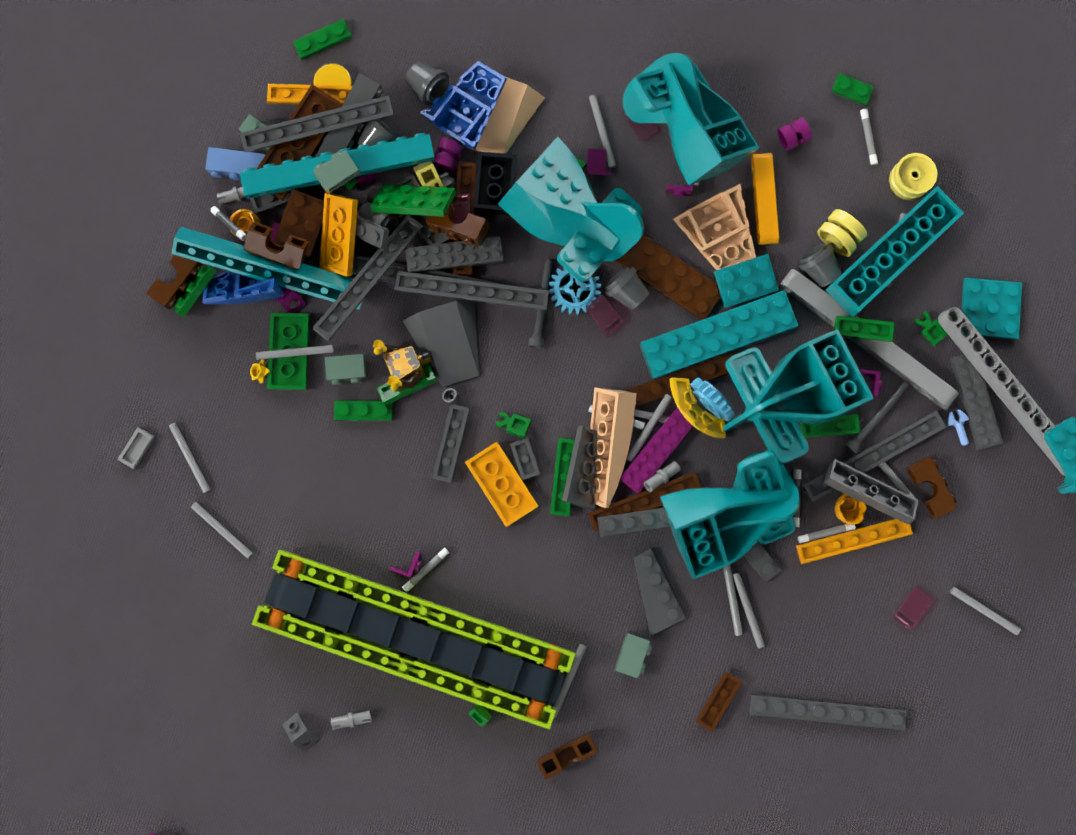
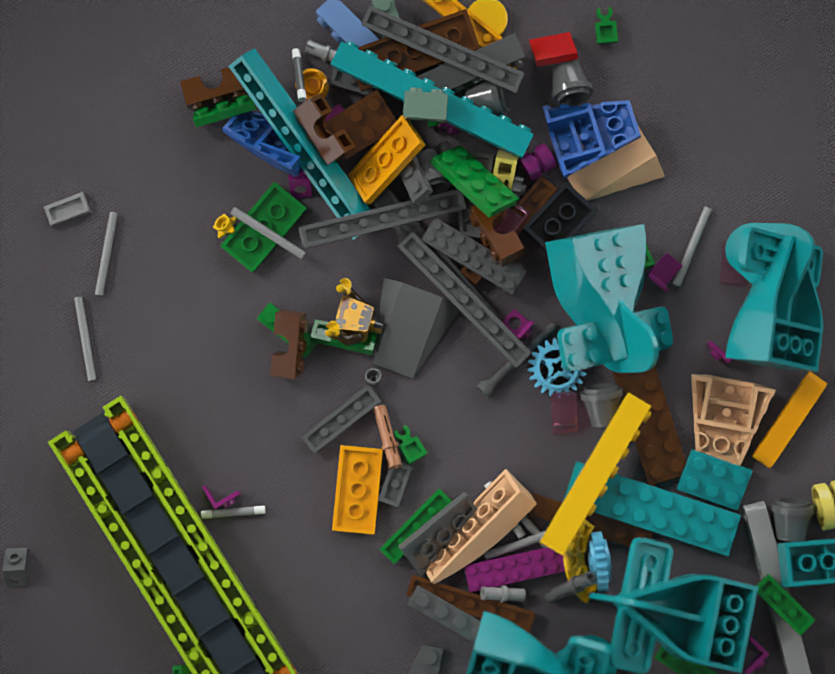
camera: 40 degrees right, 0 degrees up
(345, 369) = (301, 281): sand green brick -> none
(351, 720) = (68, 591): light grey pin -> none
(365, 404) = (293, 327): none -> reddish brown arch
(396, 67) = (553, 49): none -> red tile
(422, 25) = (605, 29): none -> green plate
(499, 434) = (389, 446): none -> nougat pin
(531, 278) = (525, 328): none -> magenta bracket
(661, 339) = (595, 474): none -> yellow brick
(709, 428) = (574, 585): none -> dark grey pin

